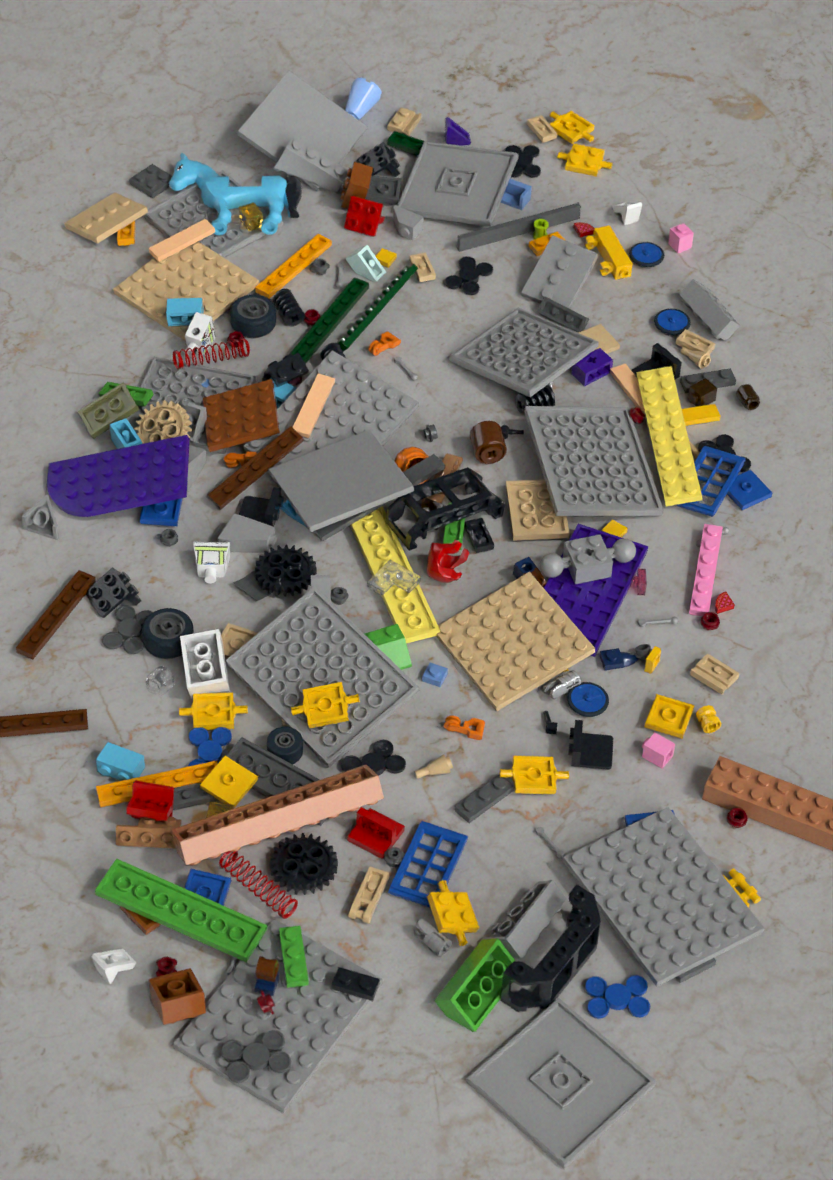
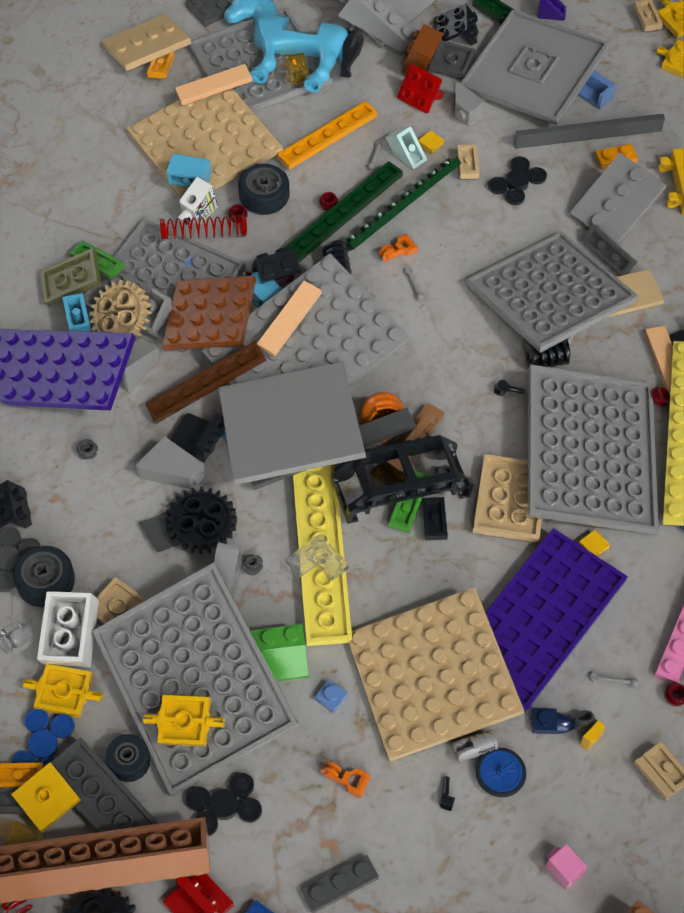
camera: 15 degrees right, 10 degrees up
(162, 513) = (89, 420): blue plate -> none
(211, 559) = (123, 489): white torso -> none
(233, 459) = (188, 364): orange piece -> none
(288, 307) = (305, 185): black piece -> none
(320, 266) = (356, 140): dark grey plate -> none
(430, 432) = (417, 372): dark grey plate -> none
(439, 766) = (298, 827): tan cone -> none
(441, 565) = (380, 547): red piece -> none
(488, 442) = (477, 400): reddish brown piece -> none
(525, 160) = (618, 50): black piece -> none
(530, 567) = (476, 577): dark blue leg -> none
(534, 774) = (407, 866): yellow plate -> none
(540, 228) = (613, 138): lime bush -> none
(583, 229) = (662, 145): red tile -> none
(587, 558) = (549, 582): light grey brick -> none
(590, 749) = (484, 845): black bracket -> none
(592, 367) = (625, 323): dark purple brick -> none
(640, 582) = (605, 622): clear pink plate -> none
(669, 716) = (592, 819): yellow plate -> none
(708, 719) = (639, 837): yellow wheel -> none

